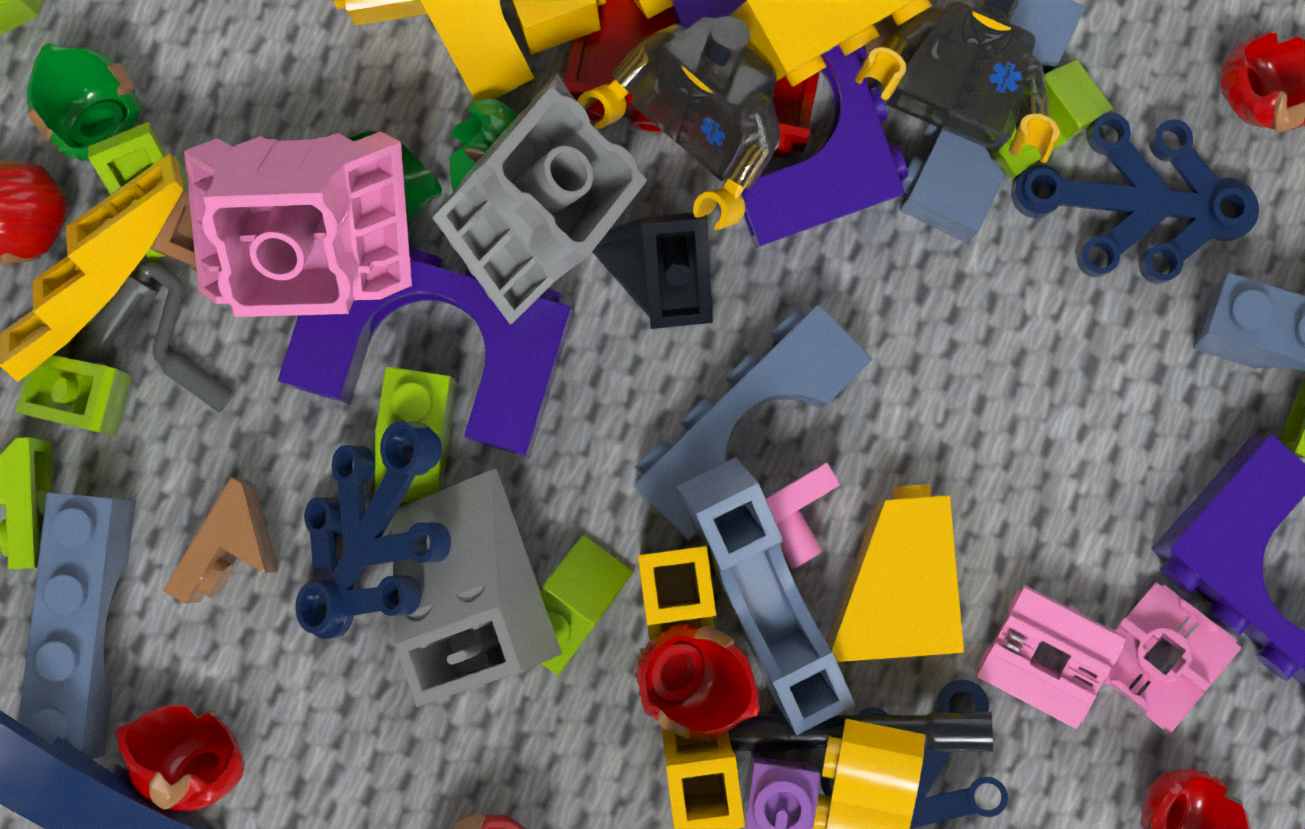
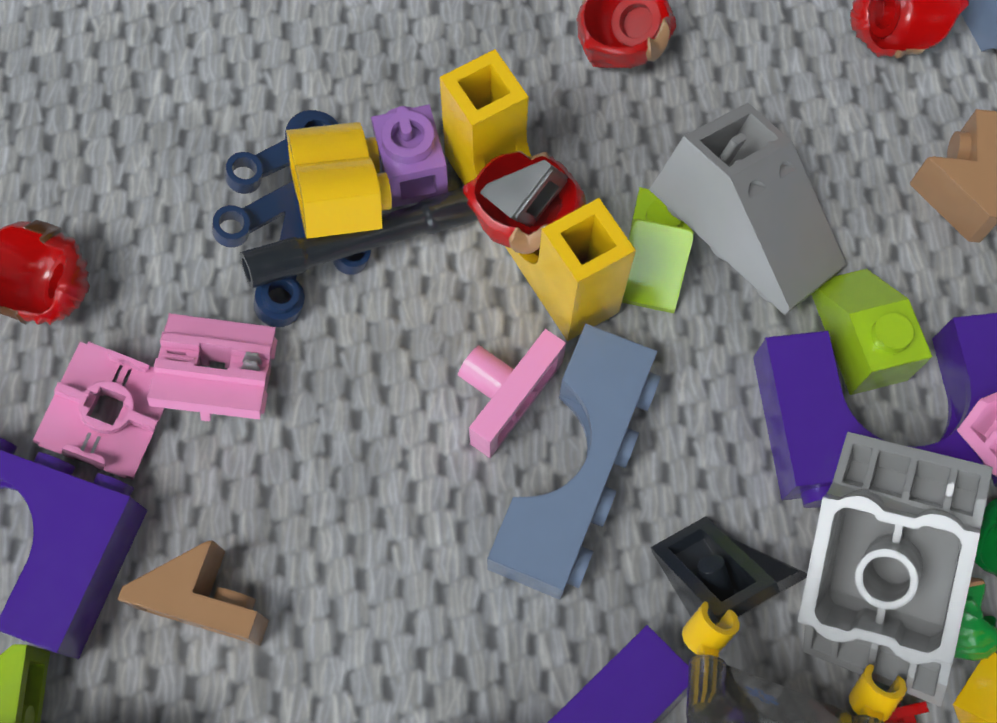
camera: 160 degrees right, 15 degrees down
(329, 601) = (858, 164): dark blue plant -> none
(704, 677) = (526, 192): none -> slope
(752, 570) = (547, 323): sand blue arch -> none
(902, 583) = (374, 373): yellow slope -> none
(1146, 443) = (182, 593): none -> medium nougat slope

